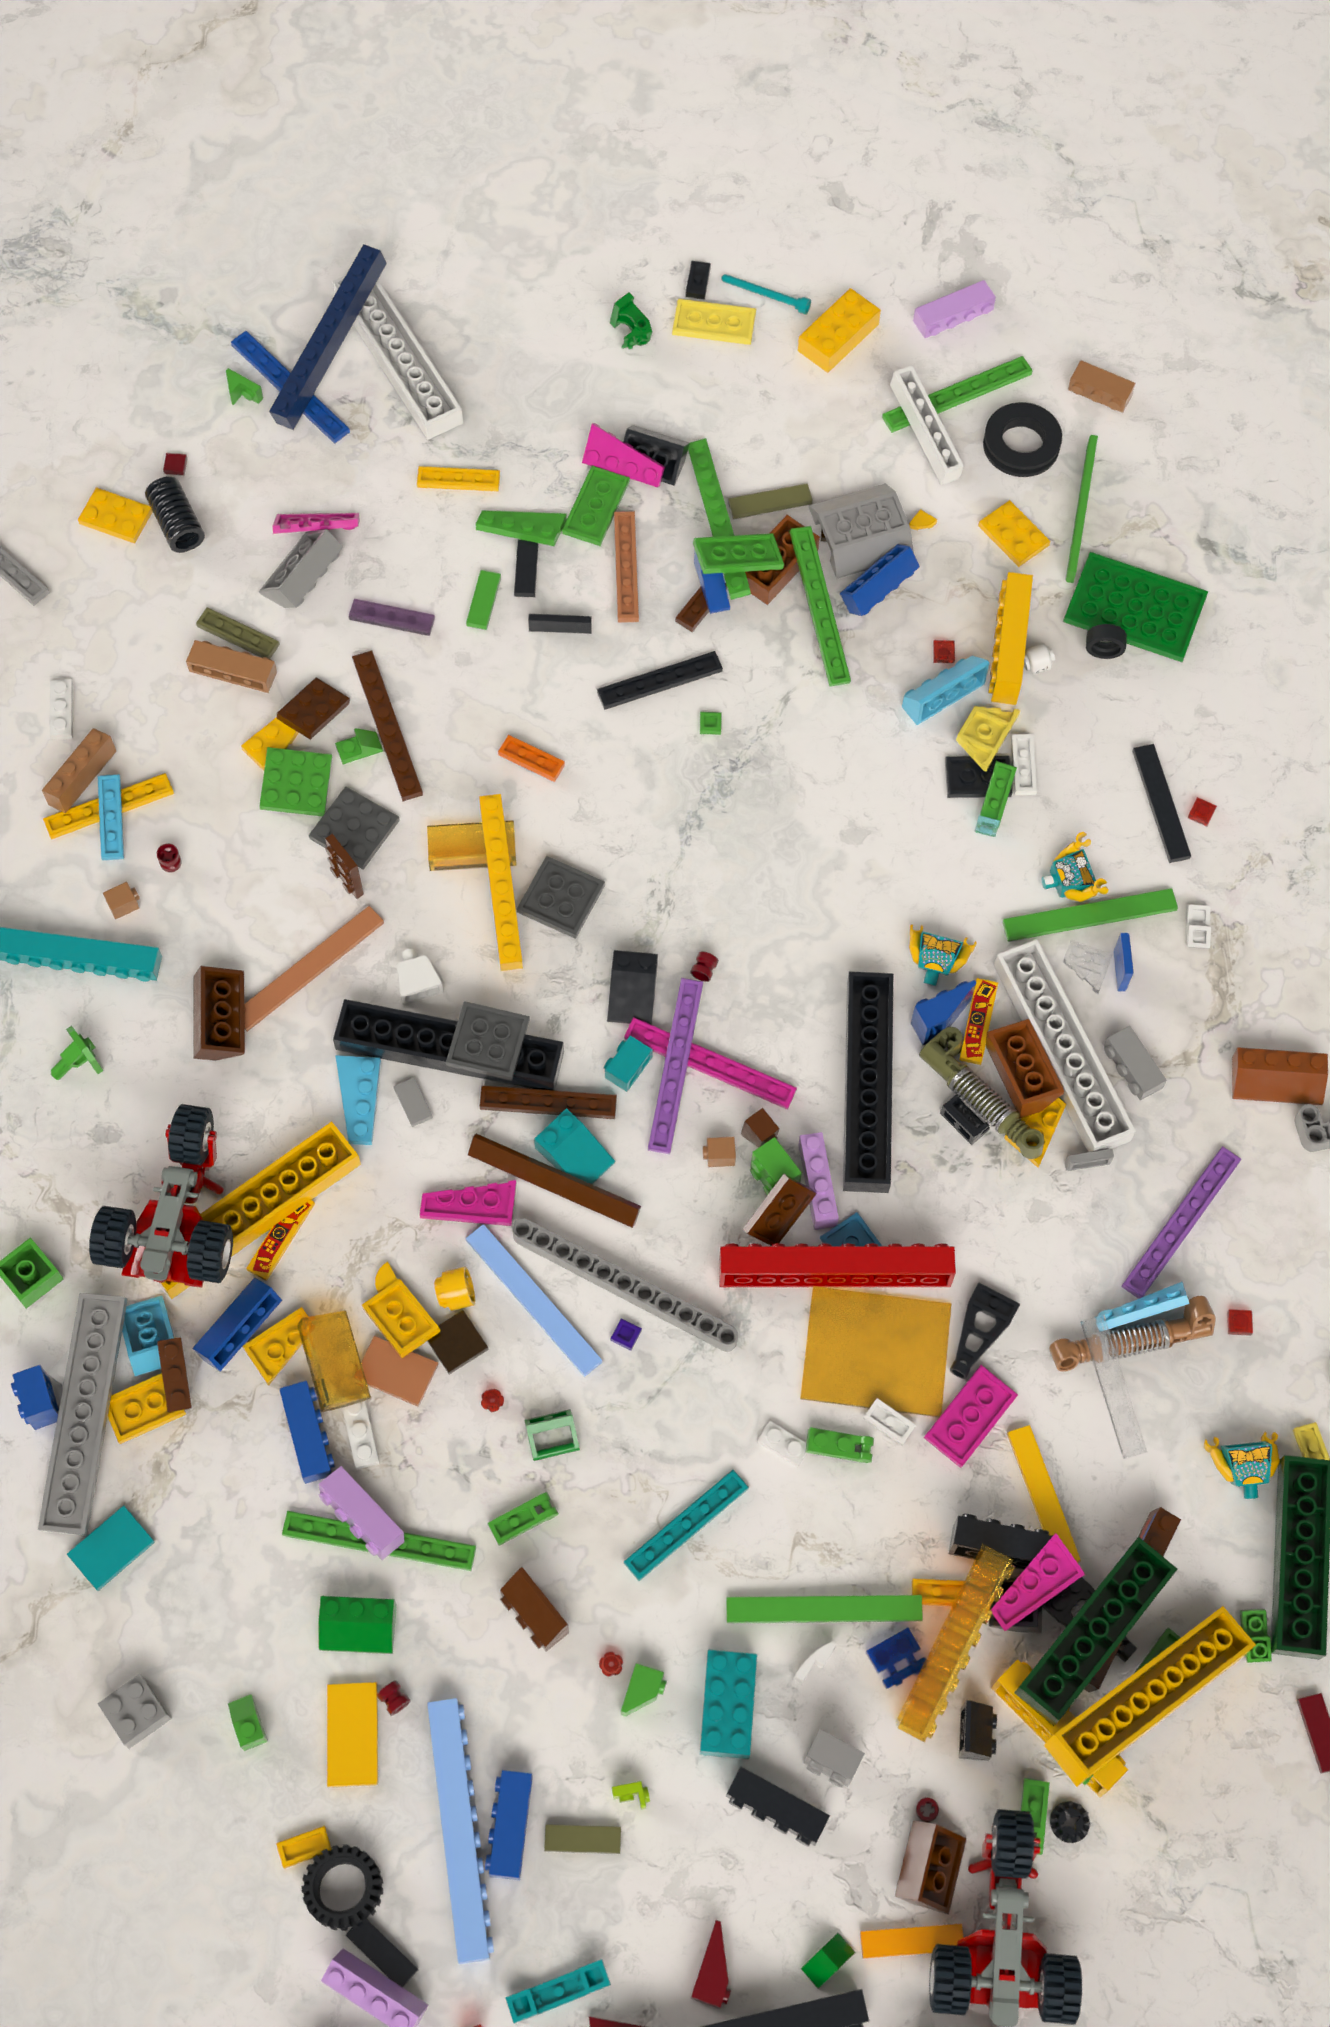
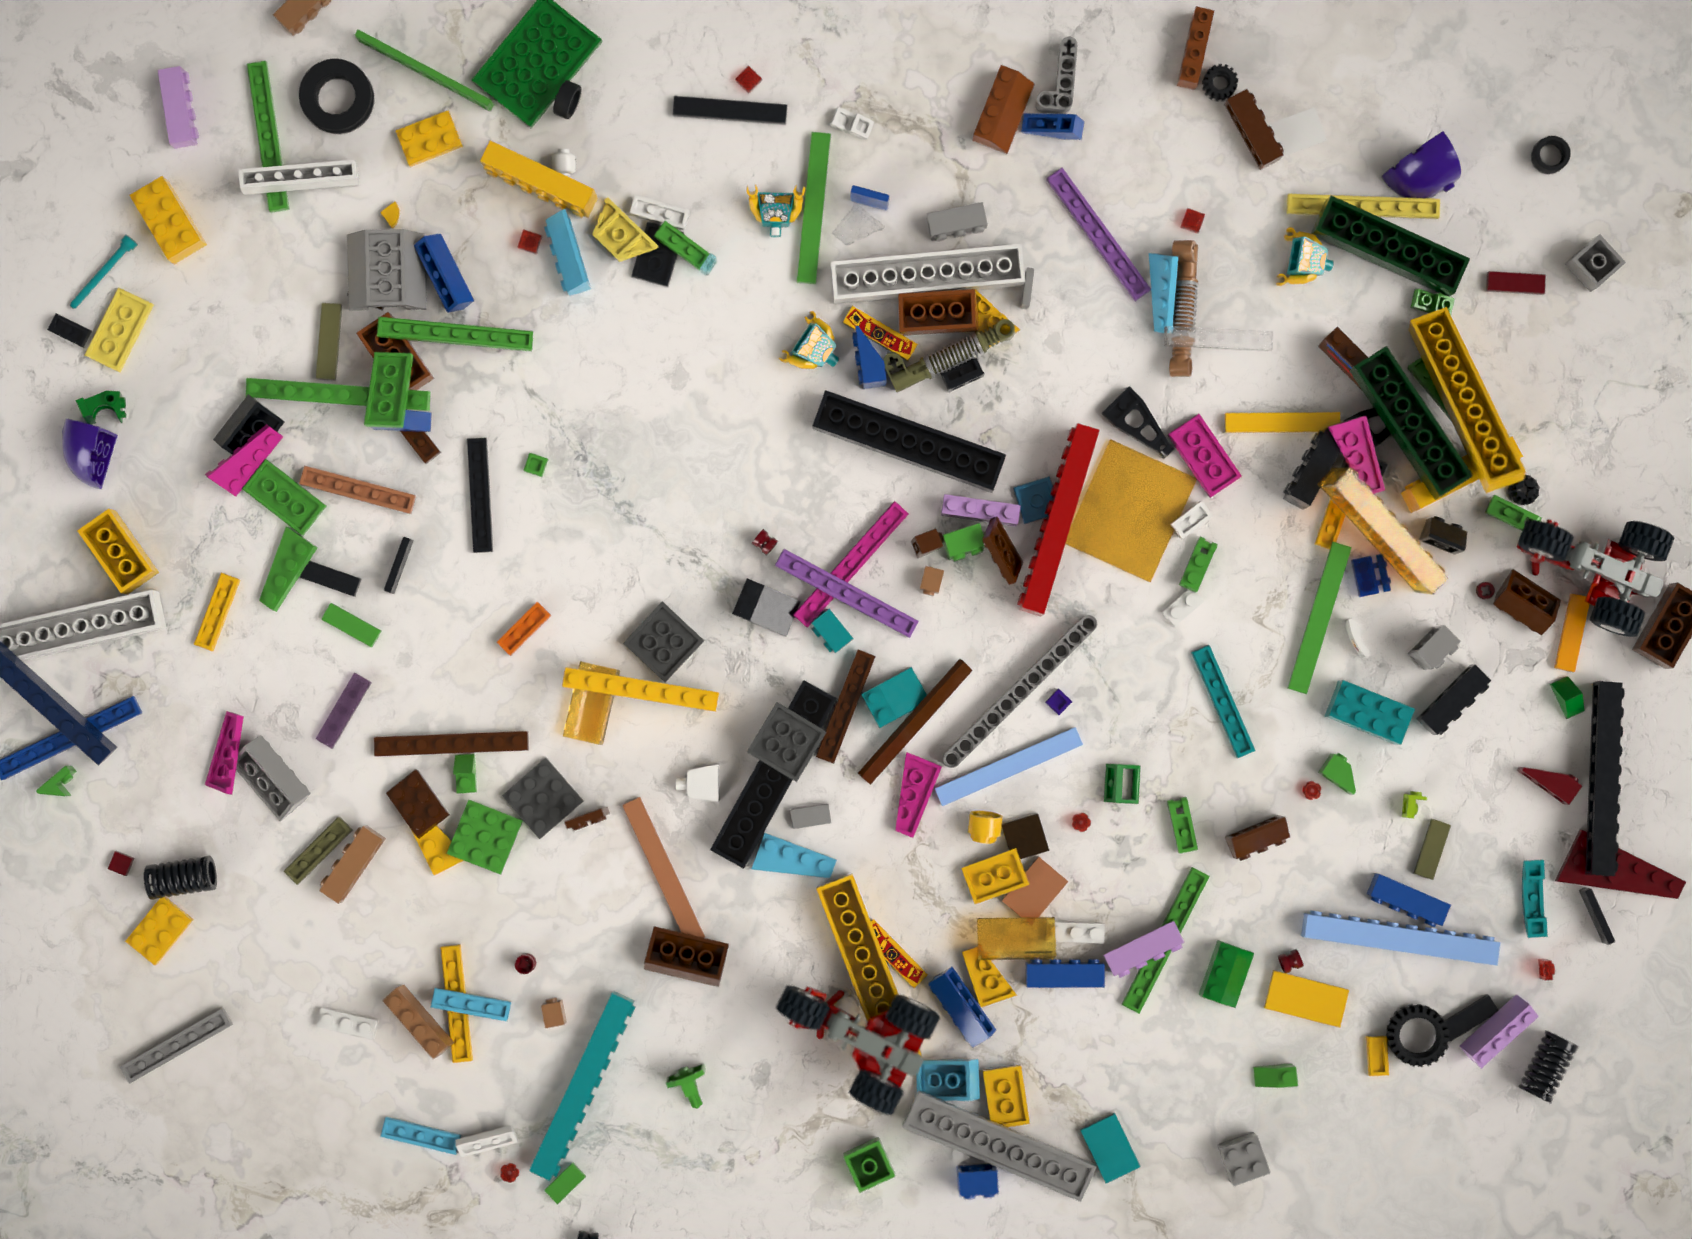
camera: 70 degrees left, 20 degrees up
(174, 1374) = (993, 1067): reddish brown plate -> none
(384, 1277) = (955, 879): yellow tile -> none
(491, 374) = (118, 551): none -> yellow brick
(583, 323) = (87, 451): none -> dark purple brick
(1284, 1136) = (1054, 125): none -> blue slope

